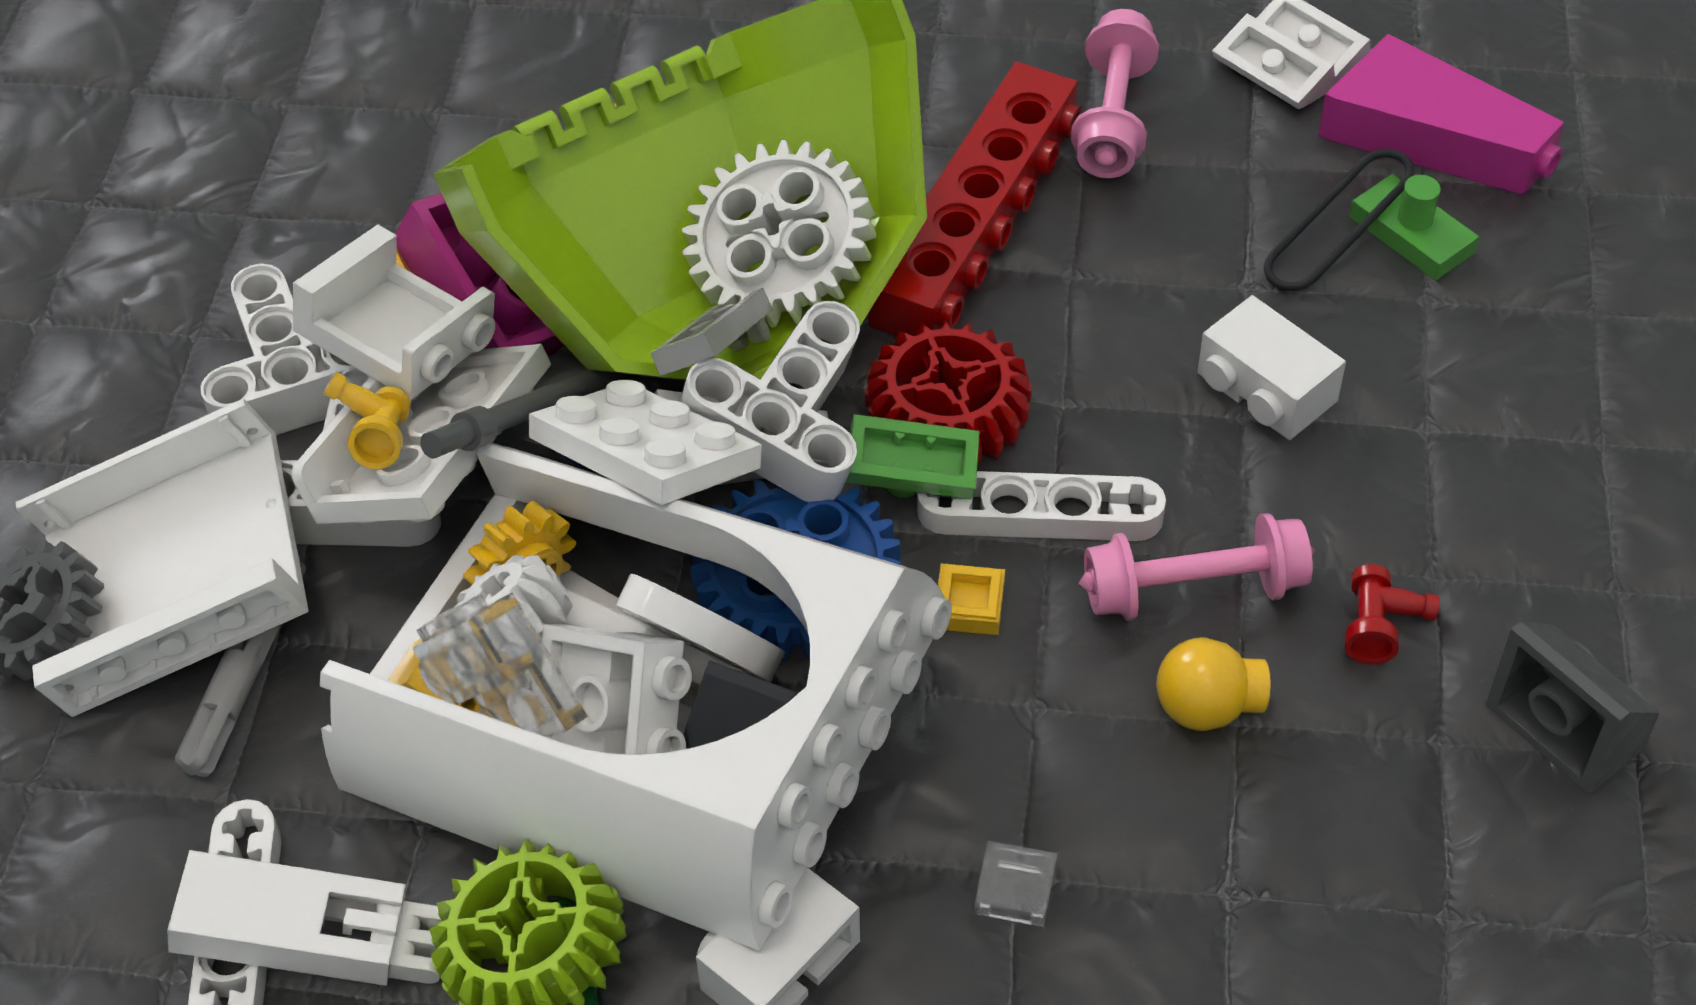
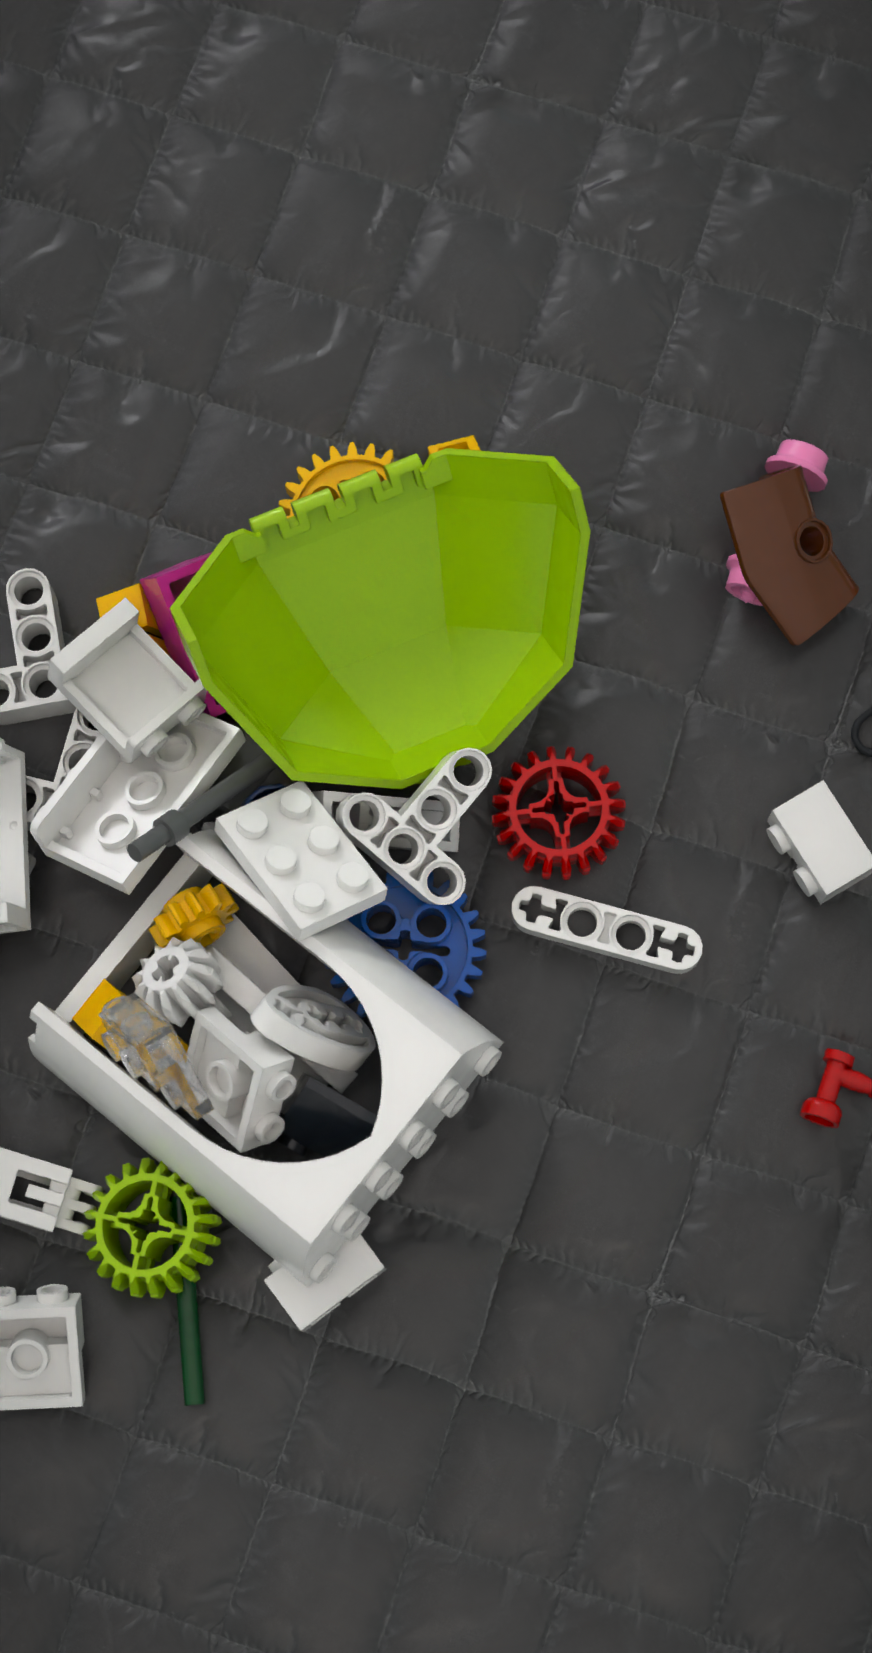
camera: 15 degrees right, 25 degrees up
(376, 437) = (98, 809): yellow piece -> none
(714, 332) = (376, 748): light grey hinge -> none
(780, 230) = (455, 596): white gear -> none
(914, 457) = (513, 881): bright green tile -> none
(974, 597) = (531, 1002): yellow tile -> none
(978, 199) = (696, 514): red brick -> none
(1015, 883) = (504, 1254): clear tile -> none
(1137, 95) = (787, 553): none -> reddish brown panel
(1210, 684) = (687, 1127): yellow piece -> none
(1279, 554) = (773, 1028): bright pink piece -> none

